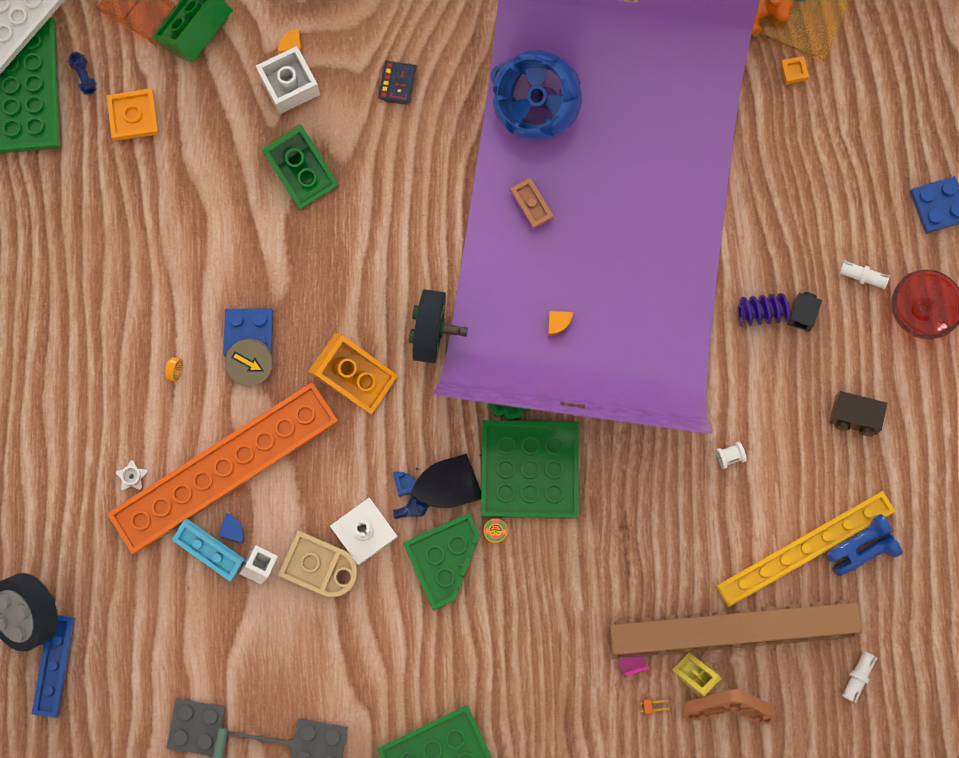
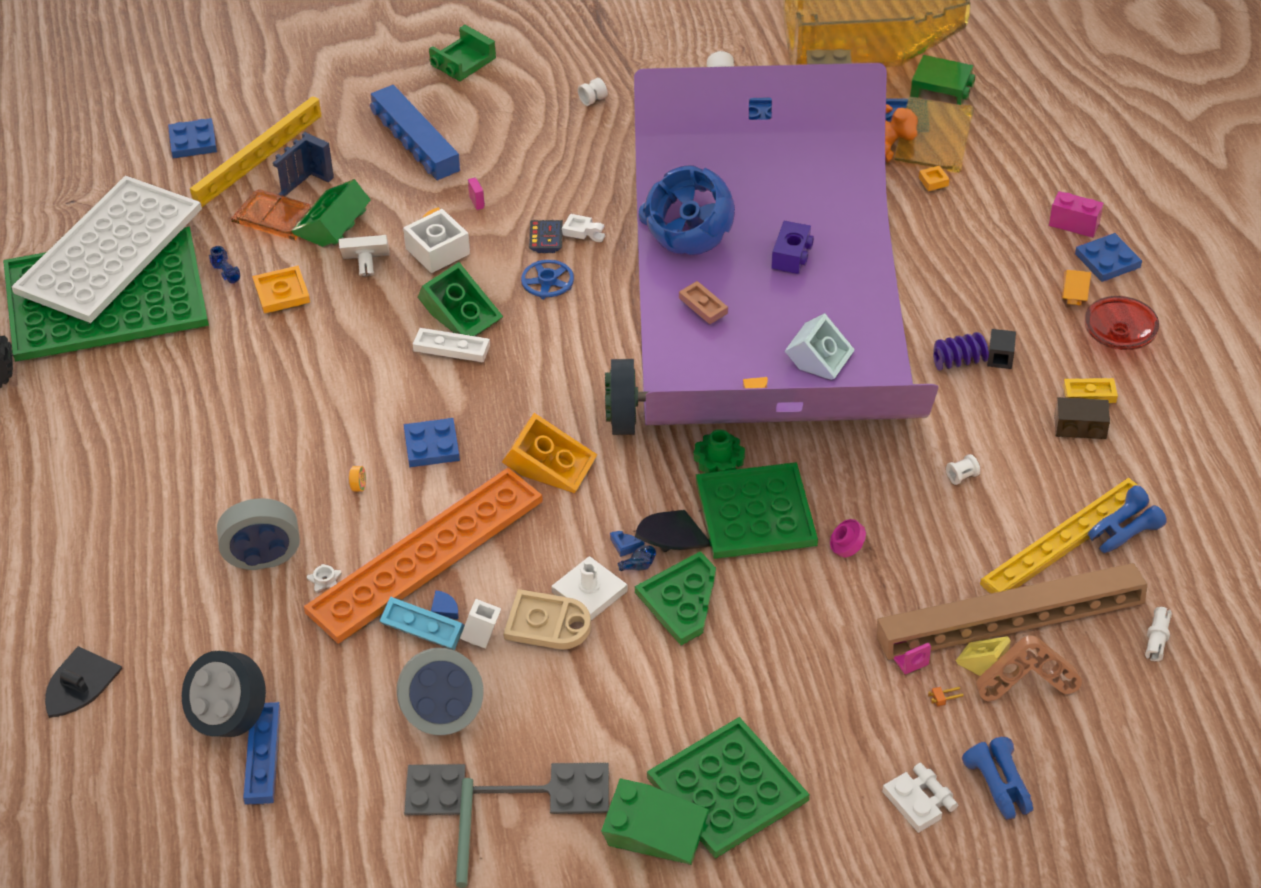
camera: 10 degrees left, 30 degrees down
(71, 435) = (258, 534): none -> light grey wheel
(209, 642) = (439, 691): none -> wheel
(217, 81) = (364, 249): none -> white tile
(249, 362) = (437, 460): dark tan tile -> none
(283, 215) = (451, 345): none -> white plate
(337, 17) = (476, 193): none -> dark pink tile
(389, 140) = (547, 277): none -> blue wheel
(431, 78) = (580, 226): none -> white plate
(495, 531) = (732, 568): tile -> none
(605, 521) = (847, 538): none -> dark pink plate
(630, 284) = (820, 348): none -> light aqua slope
(636, 134) = (791, 247): none -> dark purple brick
(864, 275) = (1051, 315): white pin -> none
(875, 378) = (1091, 389): none -> yellow plate
(897, 242) = (1076, 286): none -> light orange slope
(923, 147) = (1076, 214): none -> dark pink brick

